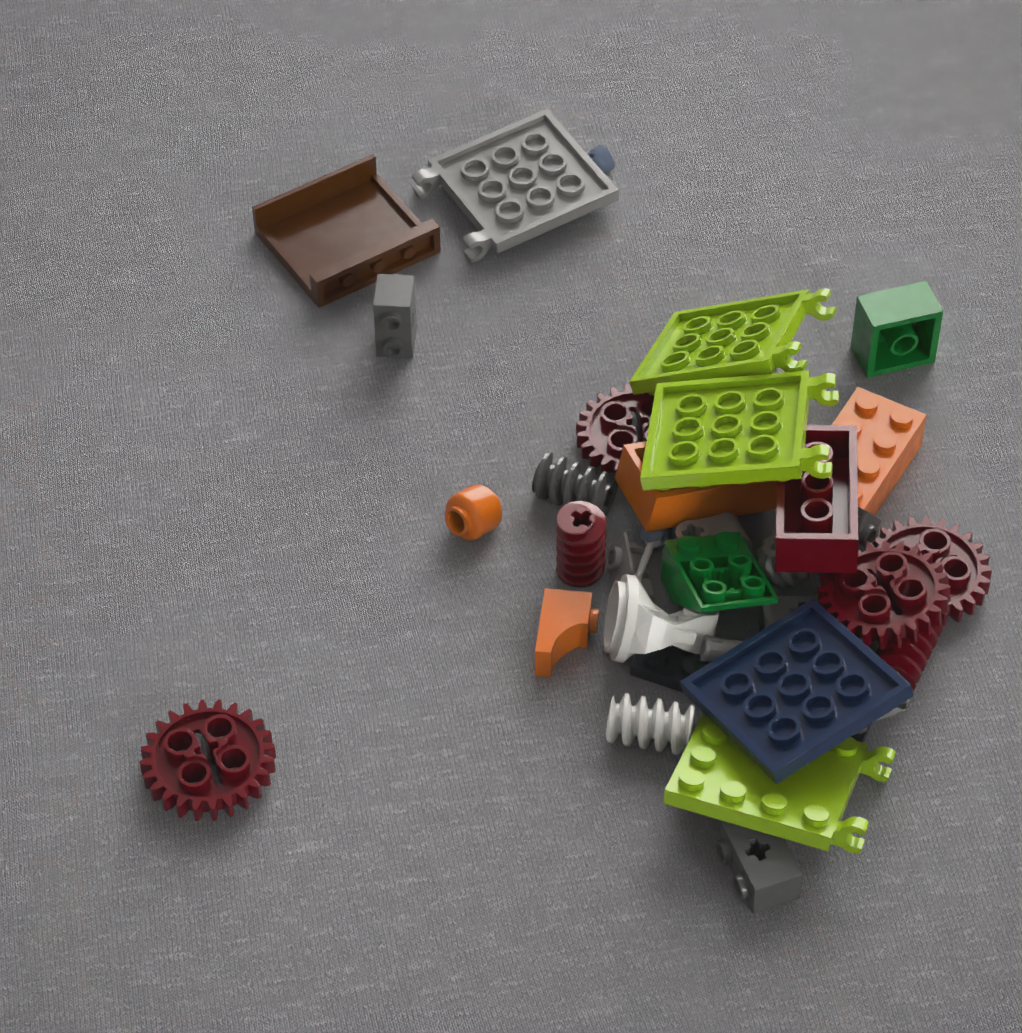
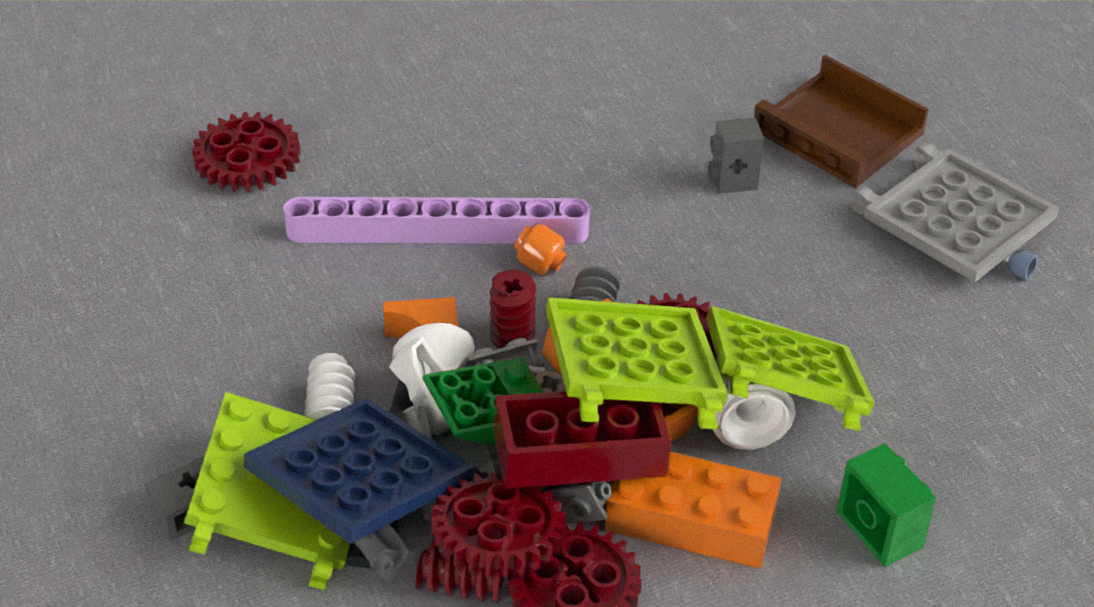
camera: 75 degrees right, 5 degrees down
(394, 601) = (431, 219): none -> lavender beam

